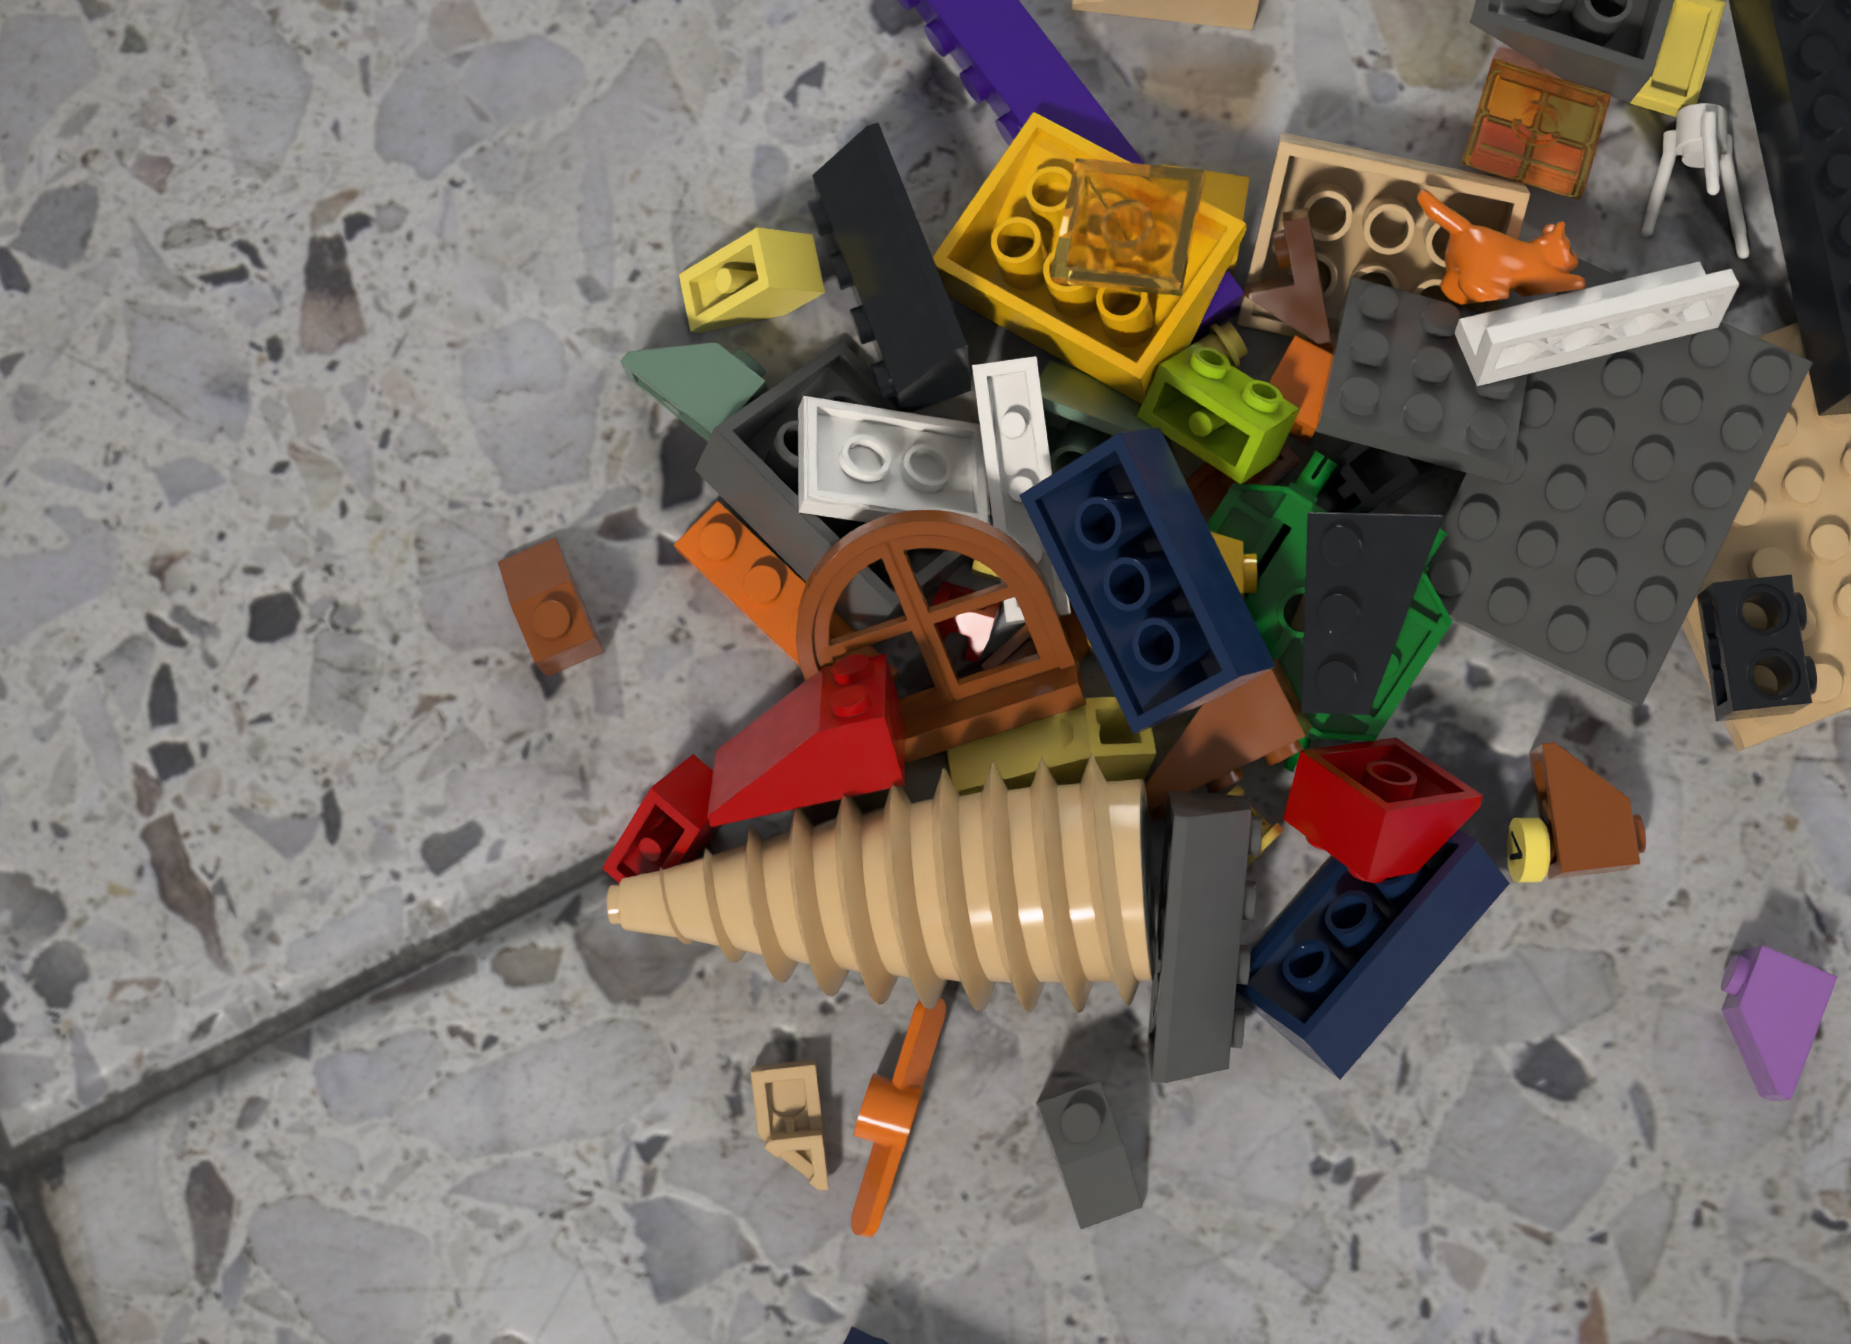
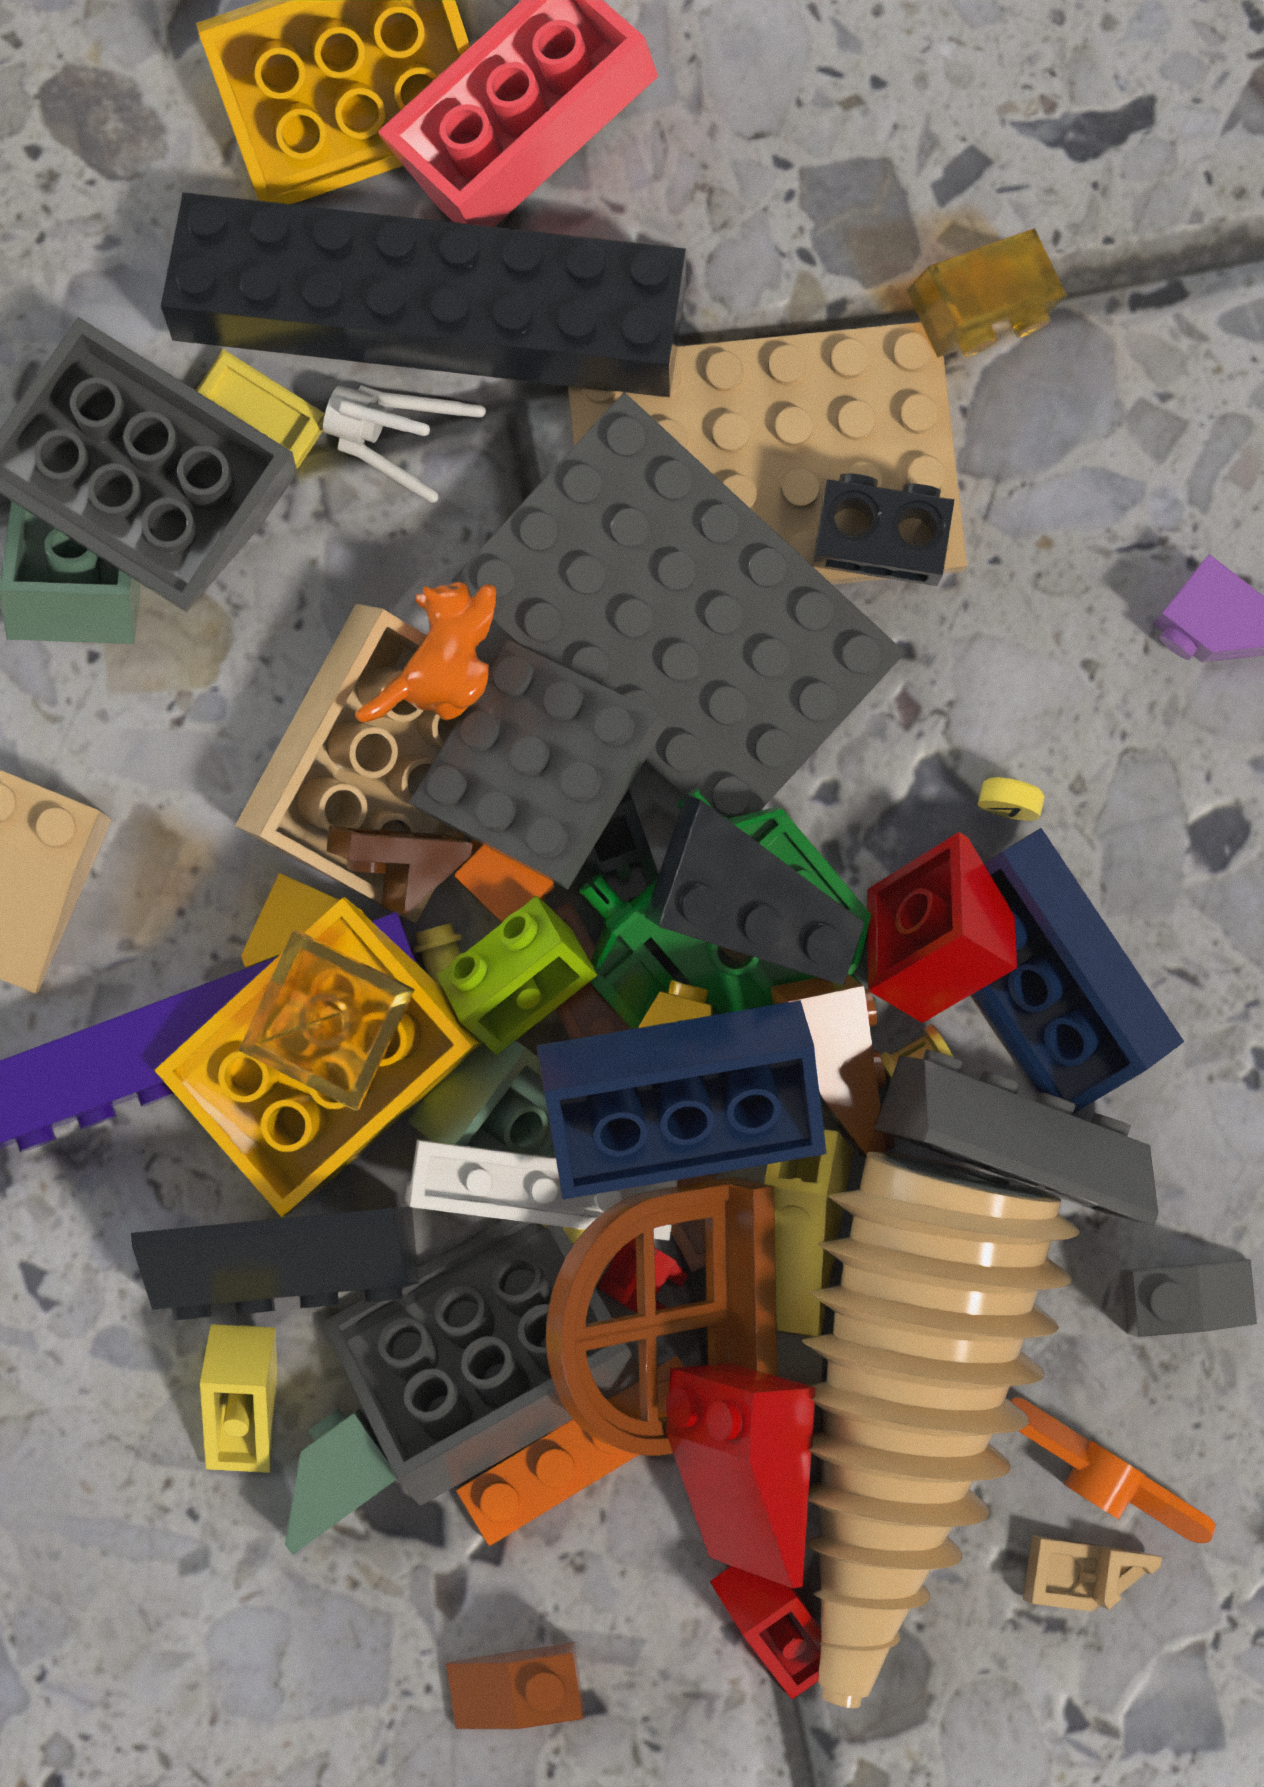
camera: 80 degrees left, 5 degrees up
(887, 461) = (478, 1311): white tile -> none
(1536, 129) = (302, 574): clear orange tile -> none
(1584, 815) = (997, 738): dark orange slope -> none
(1594, 321) = (530, 590): white fence -> none

